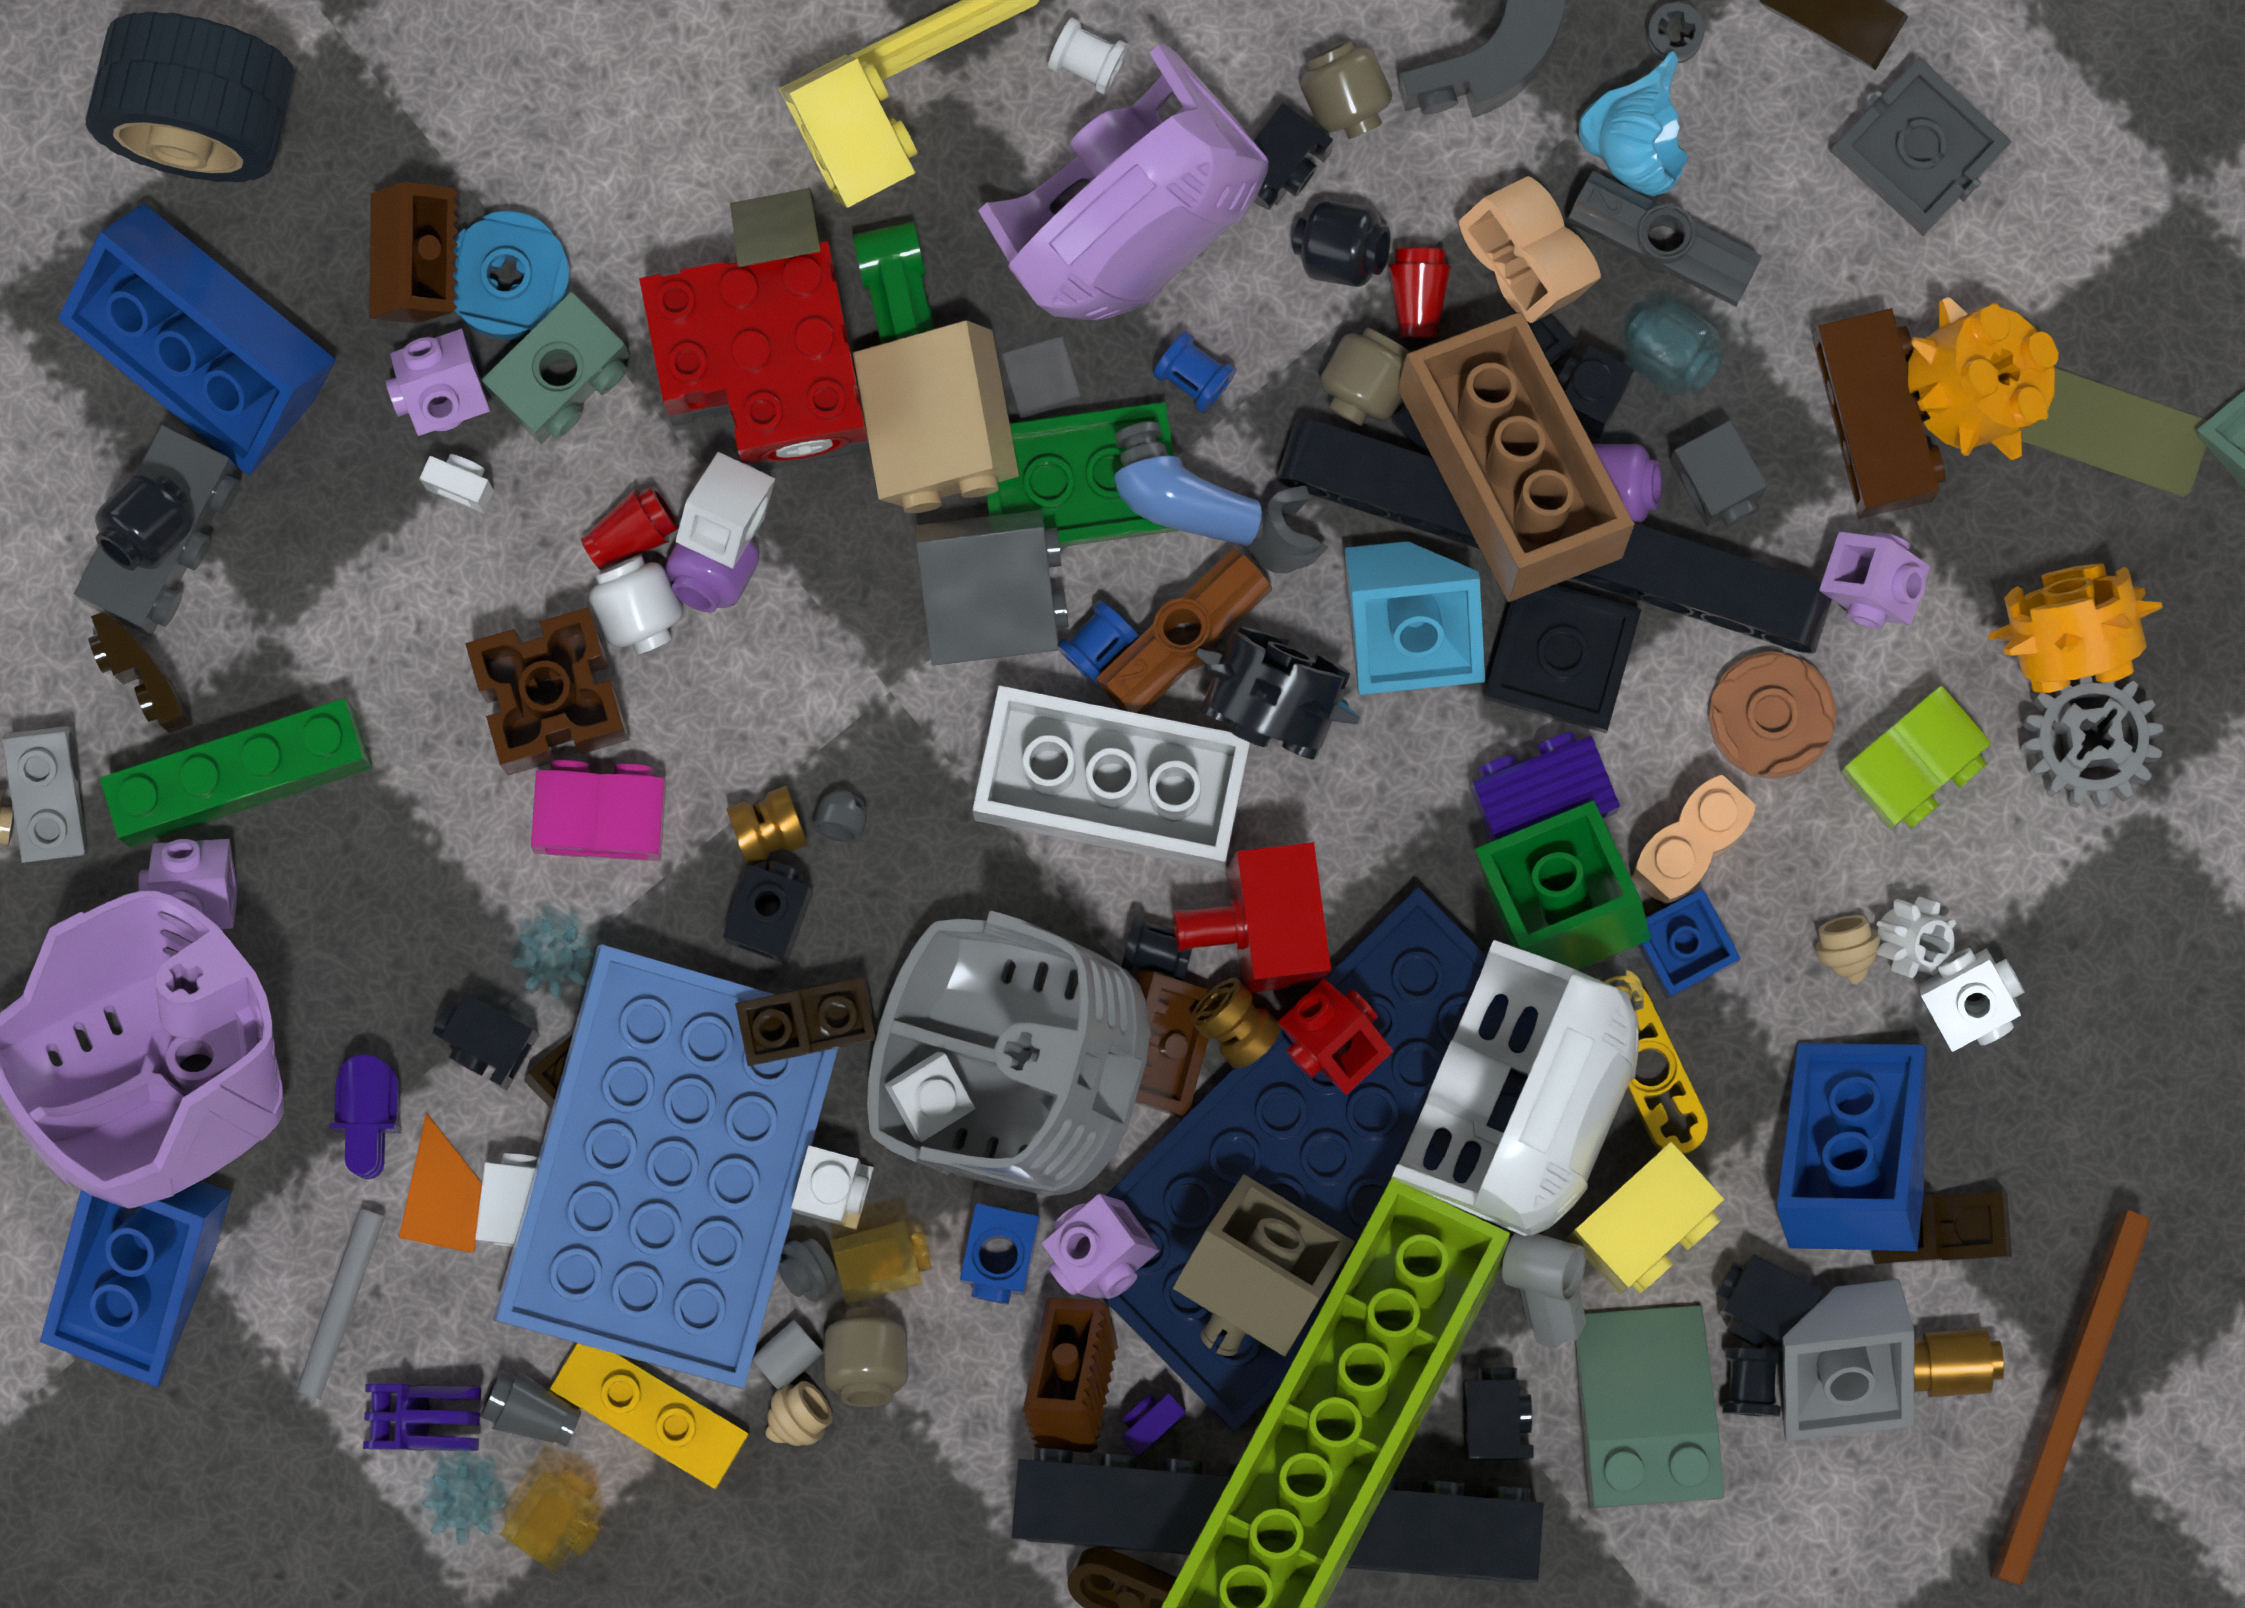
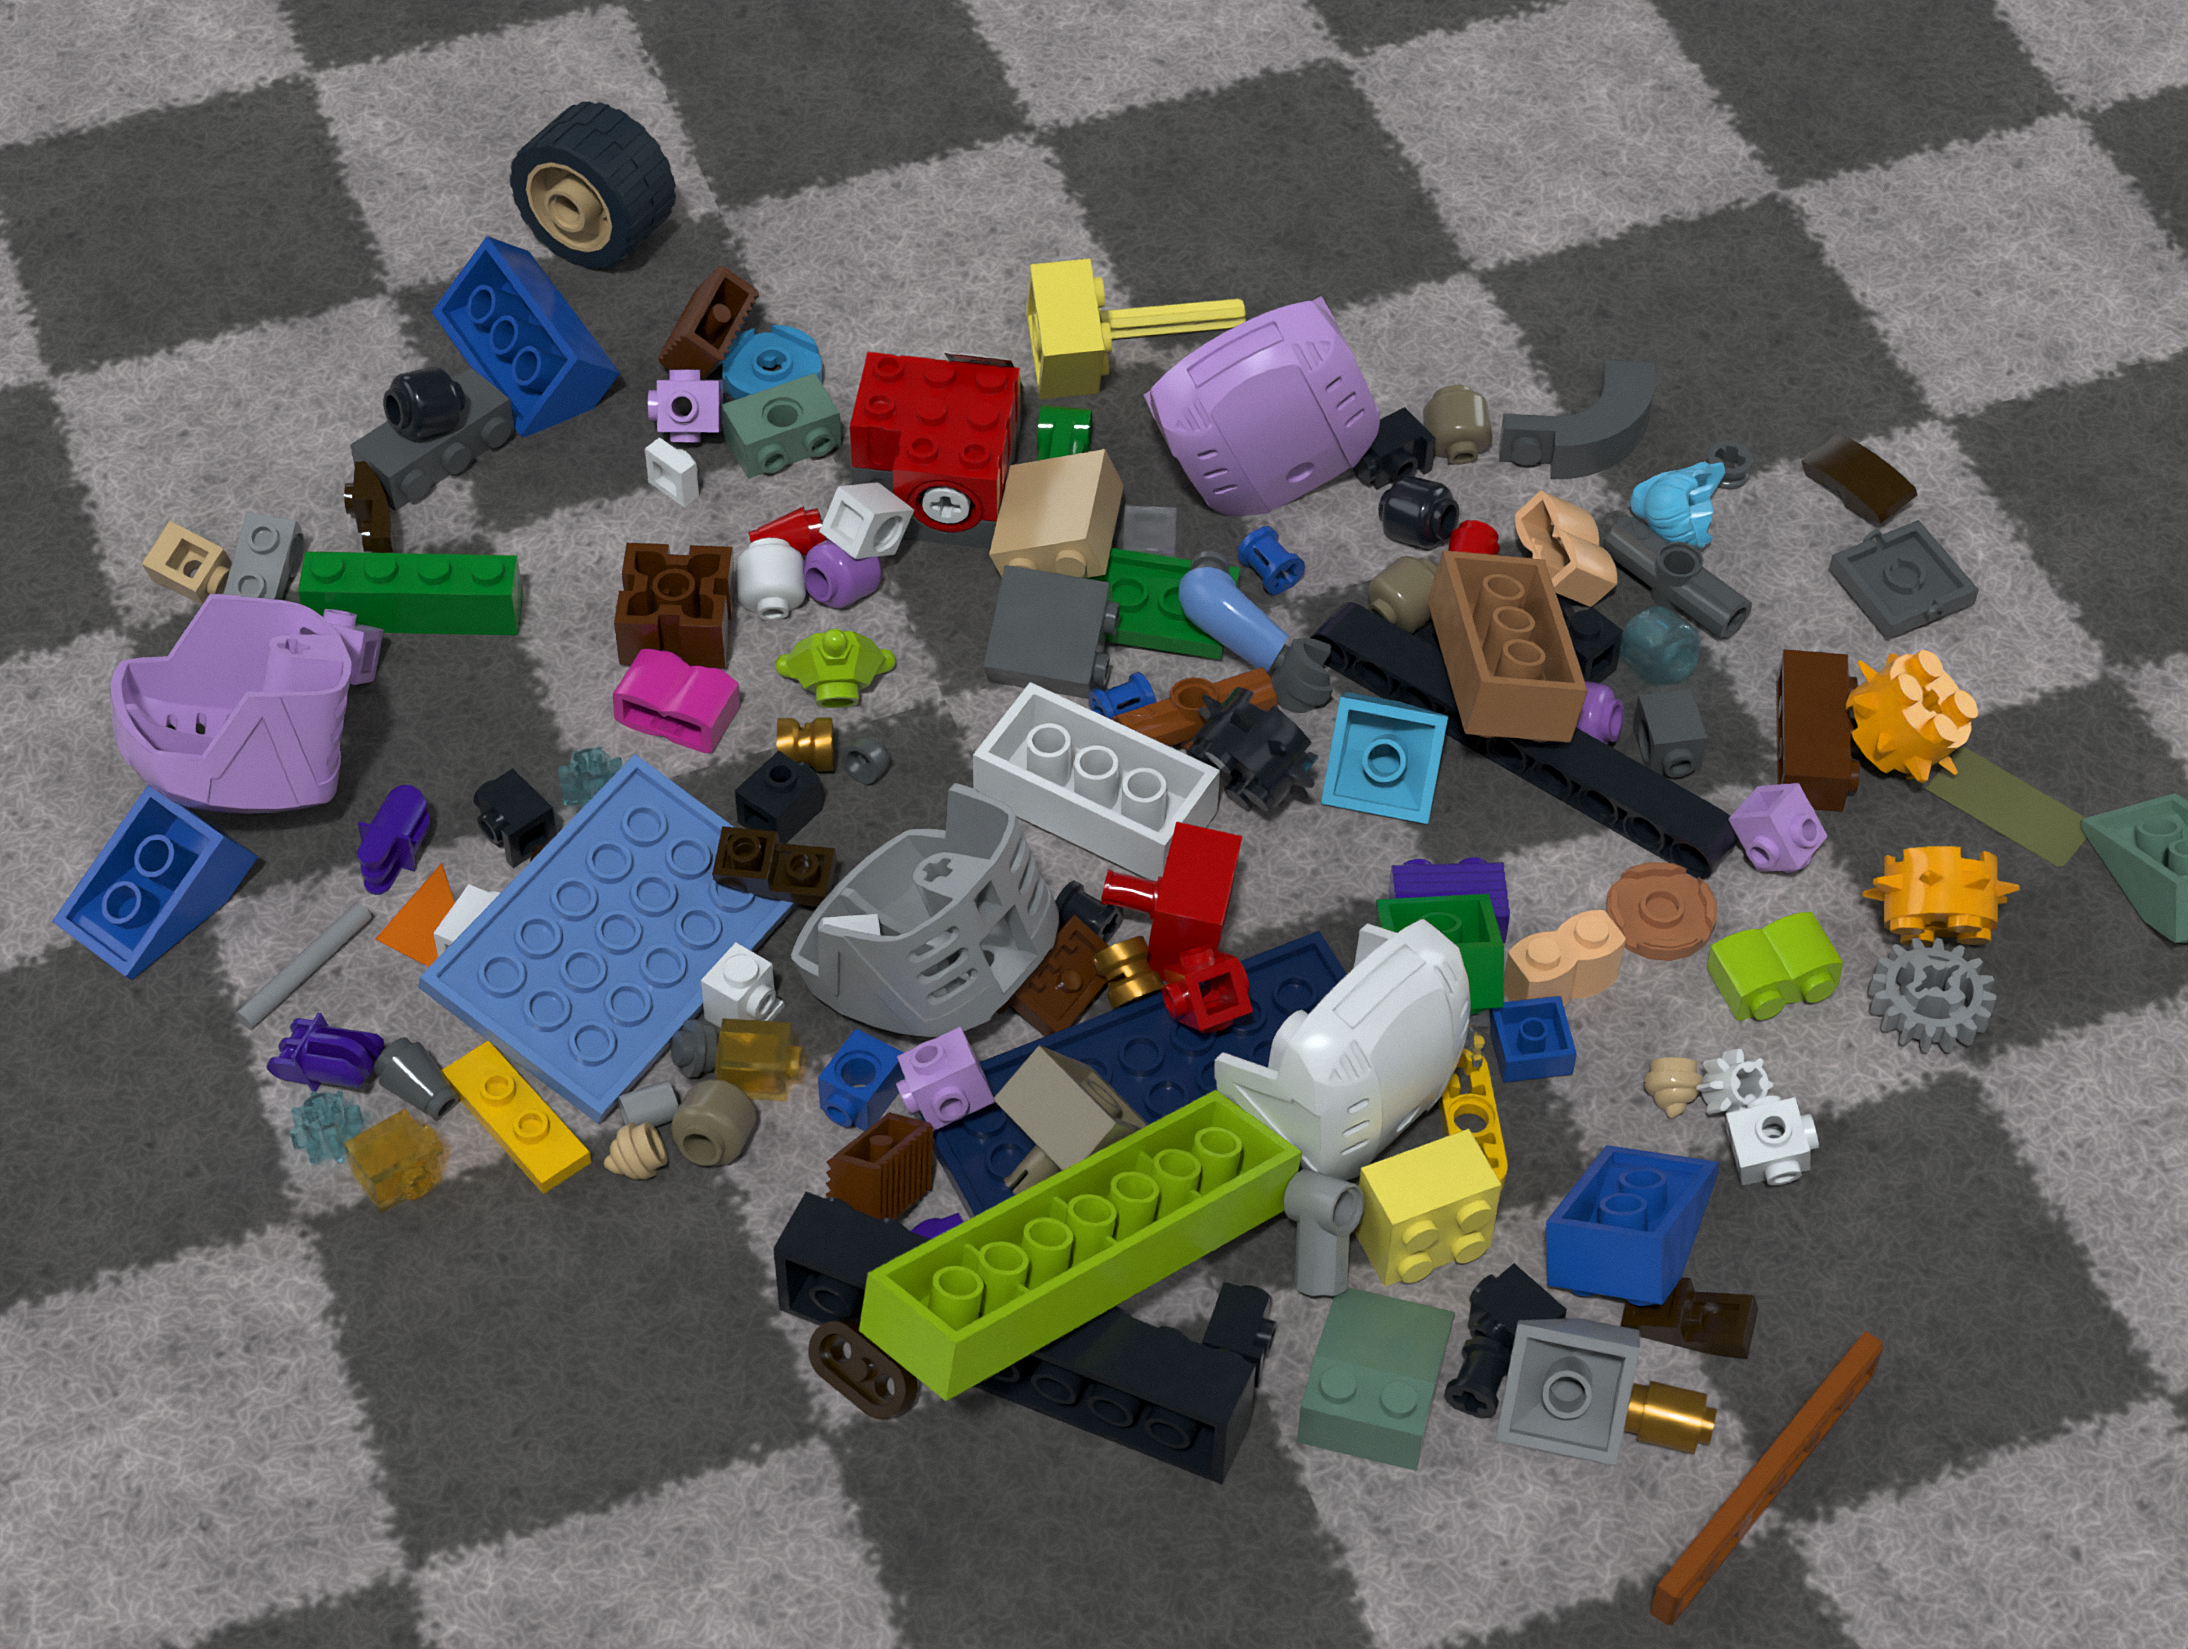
camera: 15 degrees right, 30 degrees down
(759, 708) = (835, 666): none -> lime rock
(1563, 656) = (1499, 816): black plate -> none

